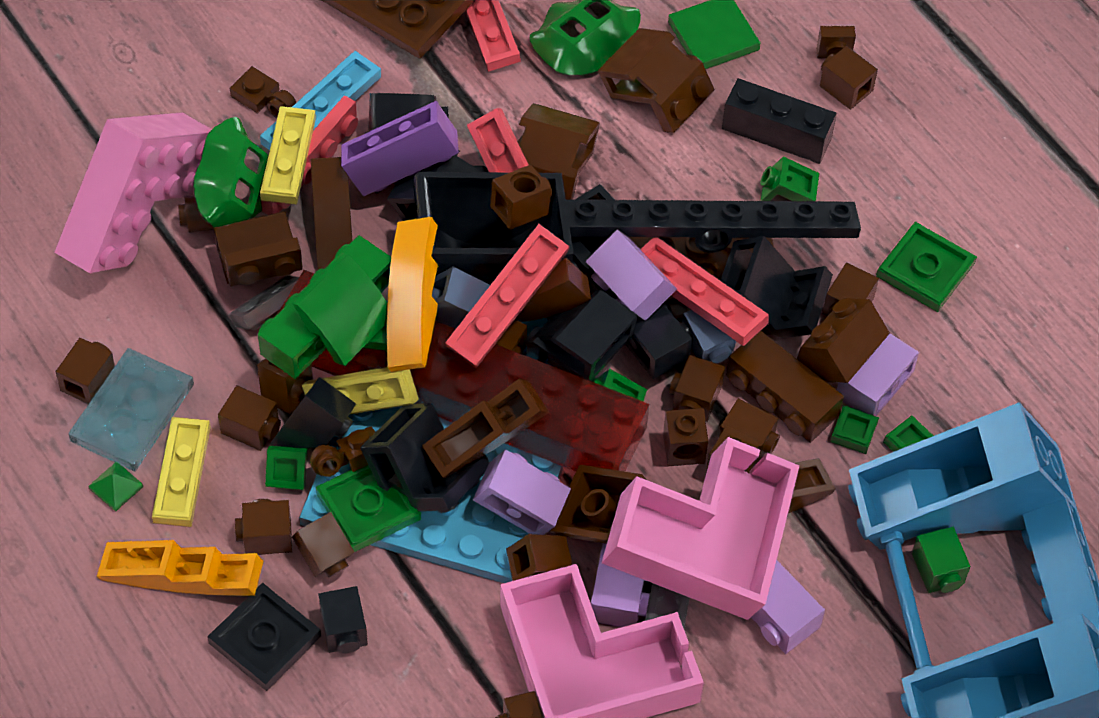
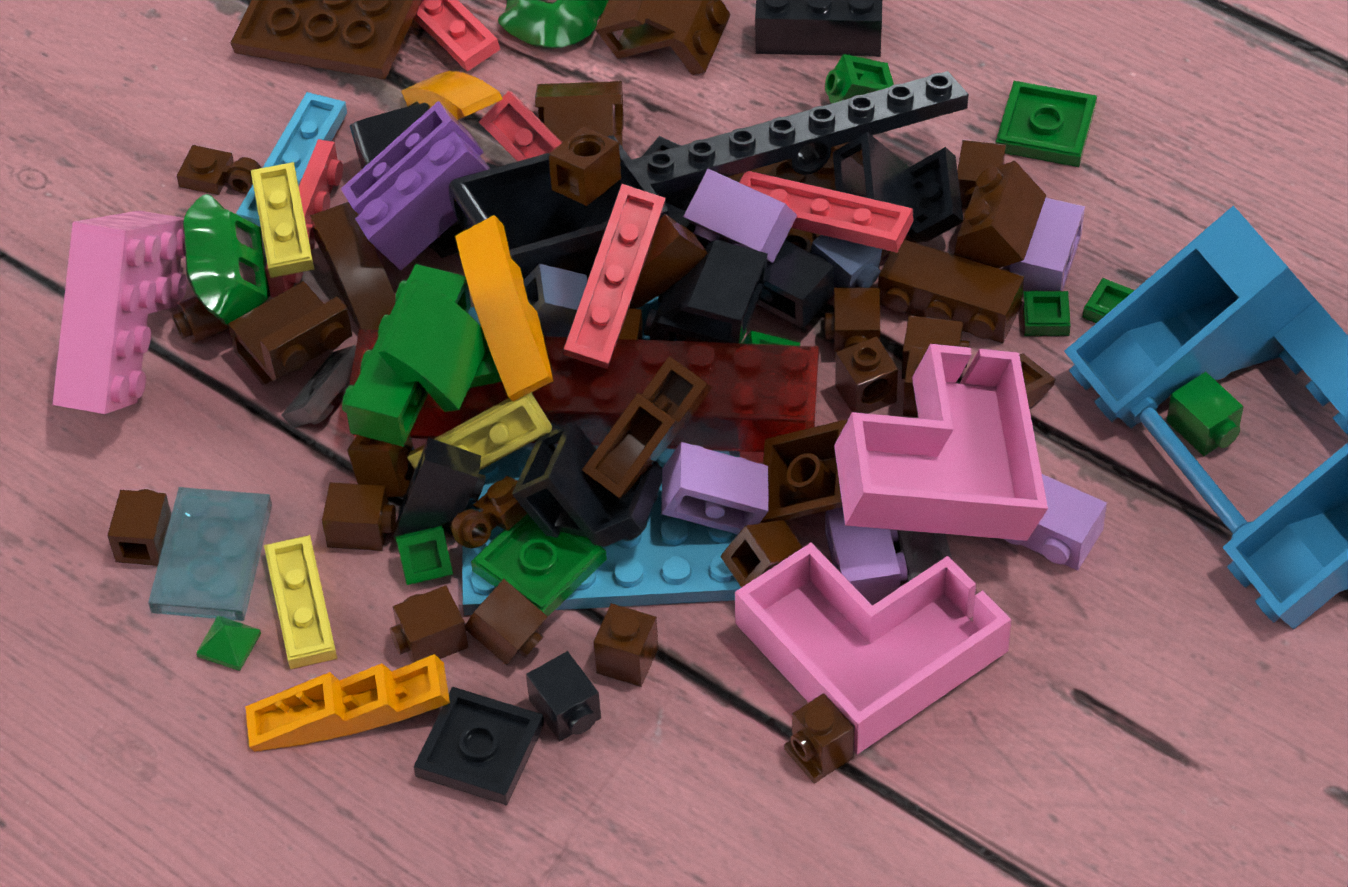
camera: 15 degrees left, 5 degrees down
(388, 180) = (418, 203): none -> medium lavender brick
(406, 595) = (626, 644): none -> reddish brown brick
(458, 93) = (456, 92): none -> light orange slope

